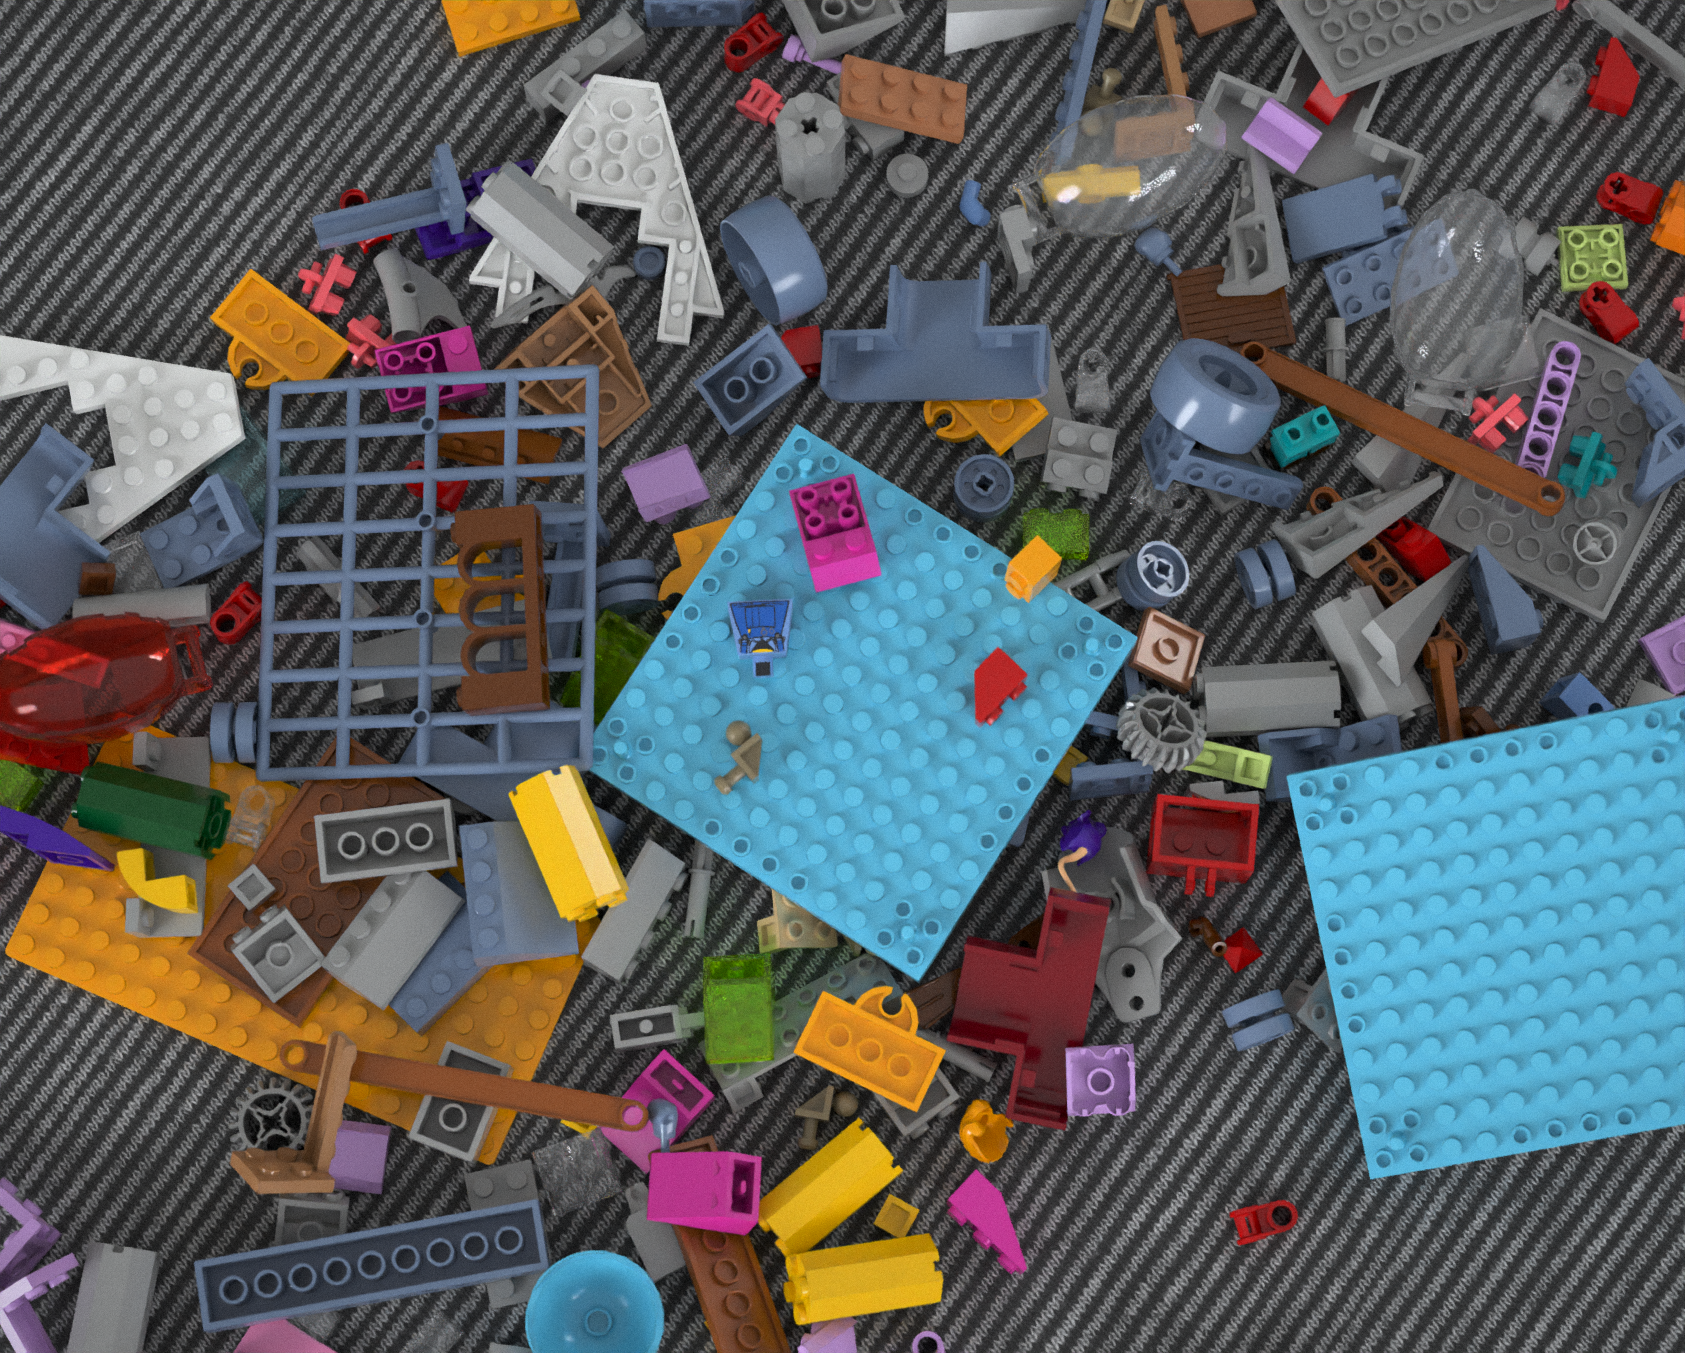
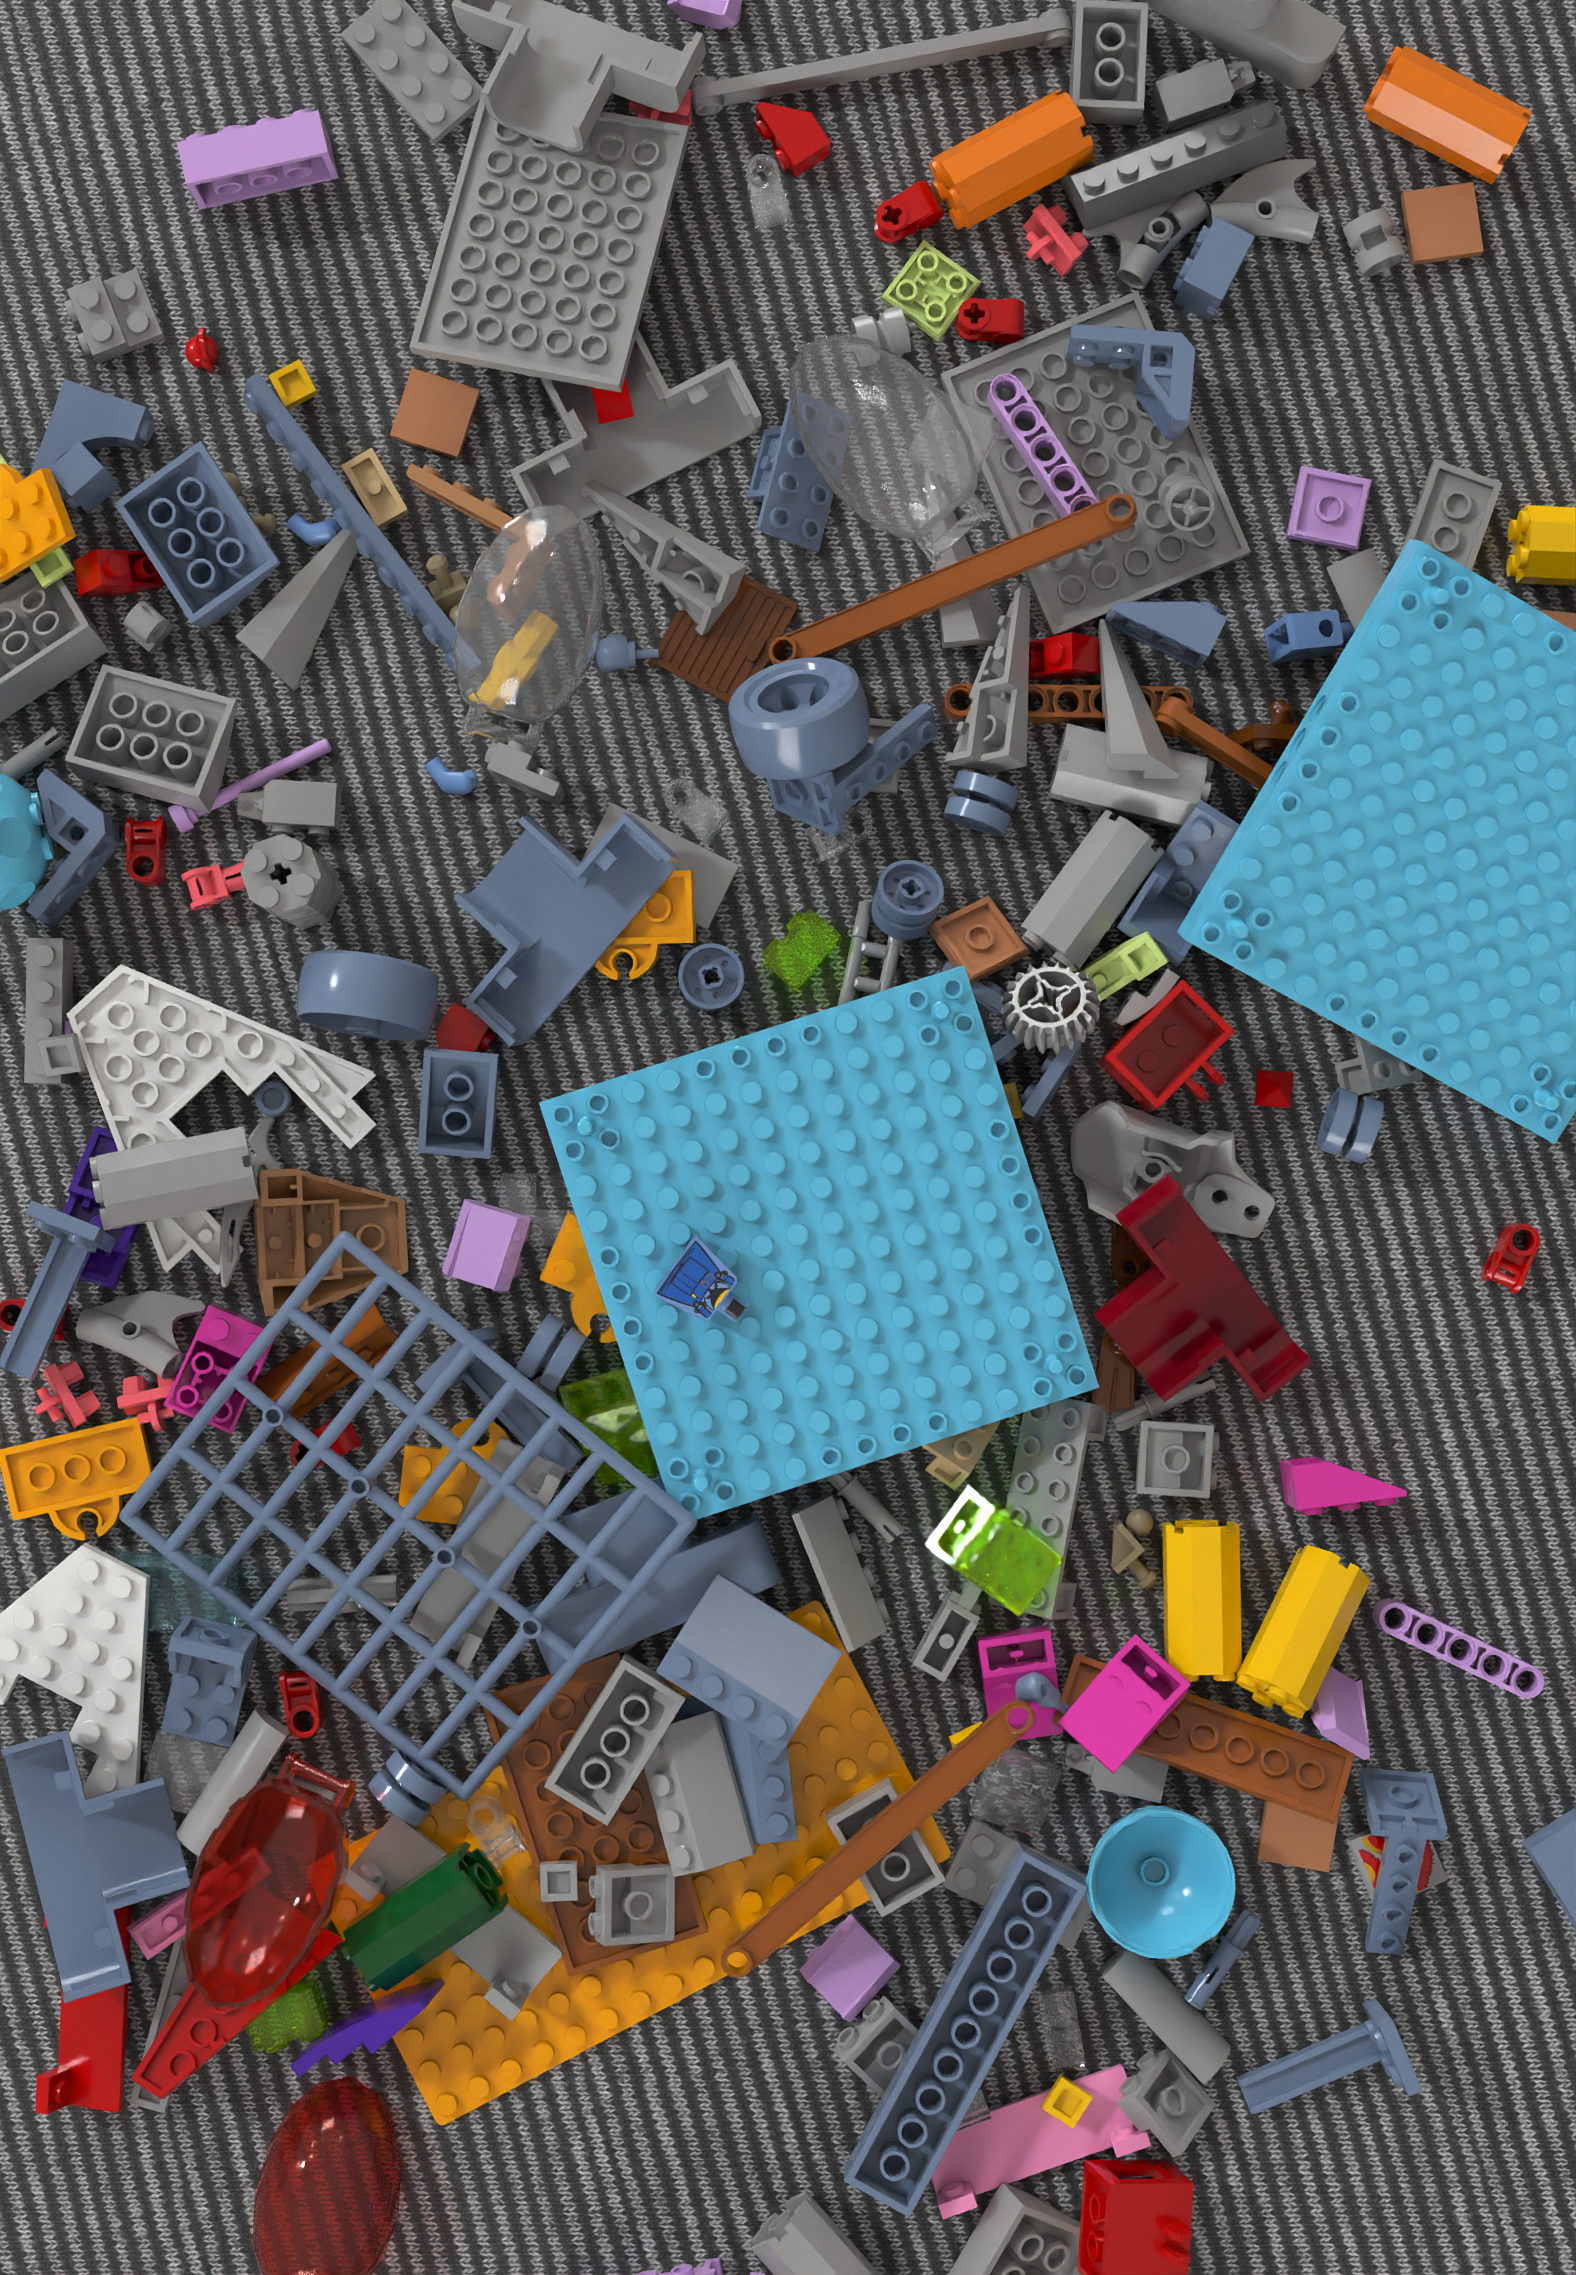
camera: 55 degrees left, 10 degrees up
(96, 578) = (173, 1802): reddish brown plate -> none
(169, 893) = (473, 1969): yellow brick -> none
(284, 1110) = (780, 2042): light grey gear -> none
(306, 1169) = (837, 2026): medium nougat bracket -> none
(490, 530) = (409, 1459): reddish brown fence -> none
(569, 843) = (749, 1591): yellow brick -> none
(746, 756) = (799, 1385): dark tan piece -> none
(835, 533) = (664, 1150): dark pink slope -> none
(872, 1045) = (1116, 1467): light orange plate -> none
(896, 1217) = (1265, 1555): yellow plate -> none
(902, 99) = (308, 763): nougat plate -> none
(907, 175) = (378, 813): light grey wheel -> none
(984, 1132) = (1256, 1427): light orange hair -> none
(994, 684) = (908, 1122): red slope -> none
(1032, 569) = (840, 1011): light orange brick -> none
(1078, 457) = (751, 875): light grey plate -> none
(1084, 839) = (1084, 1148): dark purple animal -> none
(1100, 1080) = (1293, 1296): lavender slope -> none
(1209, 934) = (1244, 1103): reddish brown arm -> none
(1281, 135) = (610, 463): lavender panel -> none
(1301, 439) = (892, 674): teal hips -> none
(1336, 349) = (834, 577): light grey axle -> none
(1341, 216) = (724, 474): sand blue tile -> none
(1508, 413) = (1012, 481): coral hips -> none
(1591, 452) = (1102, 439): teal hips -> none

